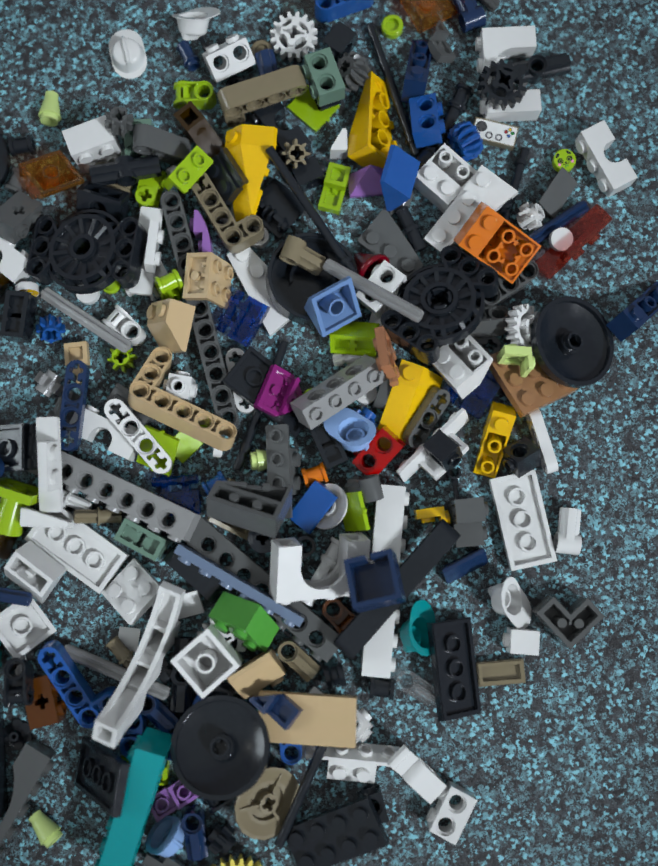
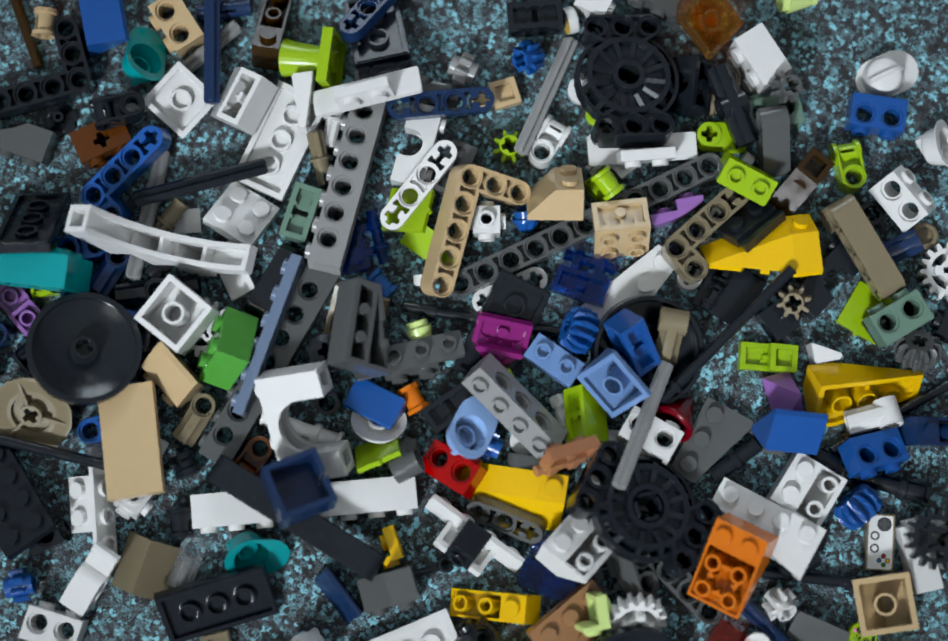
camera: 80 degrees right, 0 degrees up
(97, 622) = (200, 182): none -> black axle
(153, 65) = (875, 108): none -> blue brick
(186, 358) = (521, 222): none -> blue plate
(190, 60) = (892, 153): dark blue pin -> none
(279, 708) = (138, 406): dark blue slope -> none
(285, 328) = (578, 330): none -> blue gear
(300, 284) = (632, 341): none -> blue brick
(306, 354) = (553, 361): none -> medium blue brick
(396, 110) = (880, 414): none -> white piece
(410, 836) = (19, 585): none -> blue gear
(412, 724) = (144, 565): none -> dark tan slope
(544, 133) = (885, 604): none -> tan slope

